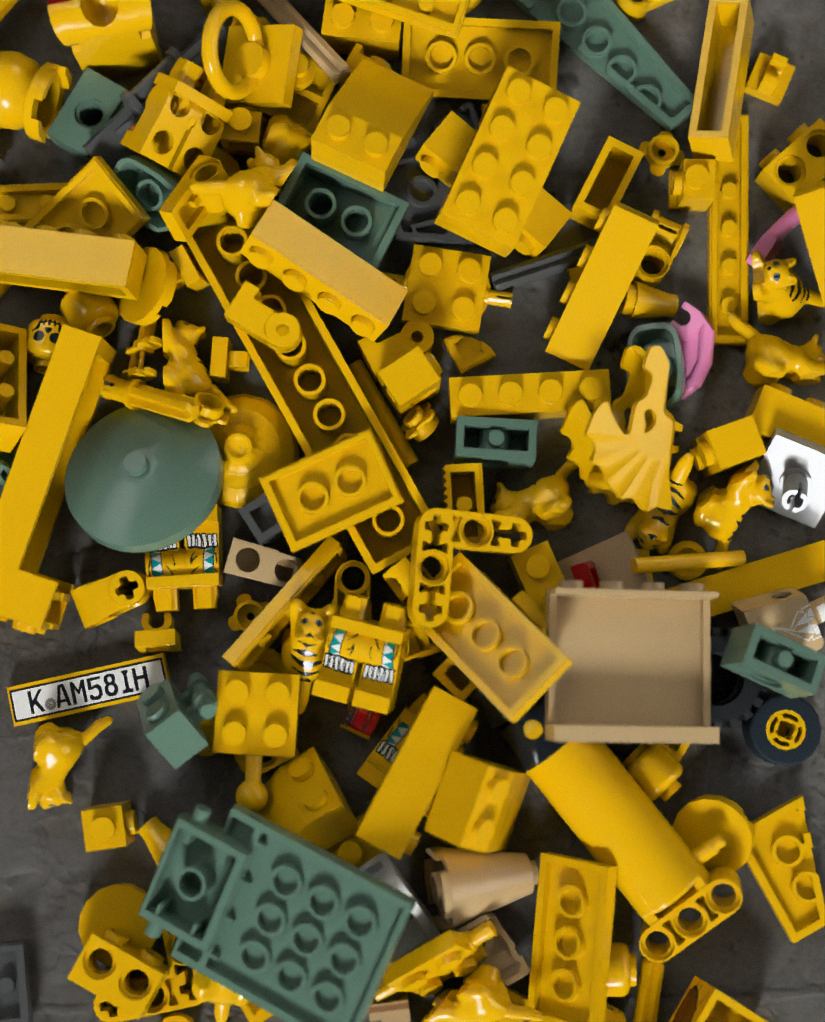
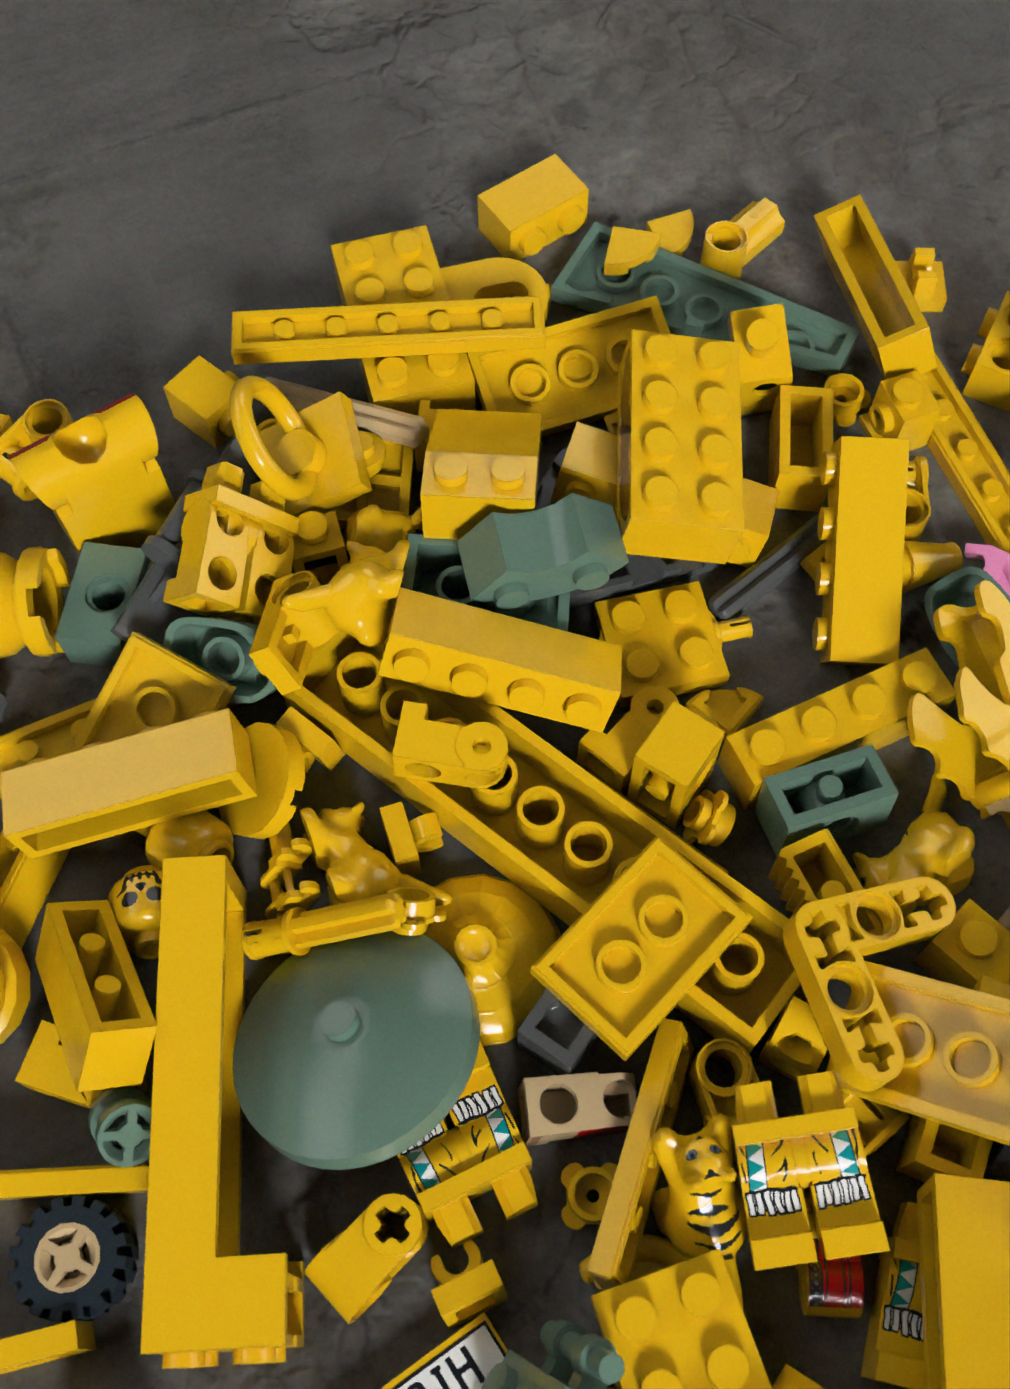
camera: 20 degrees left, 20 degrees down
(380, 207) = (542, 552): none -> sand green brick
(610, 101) = (762, 355): none -> yellow torso

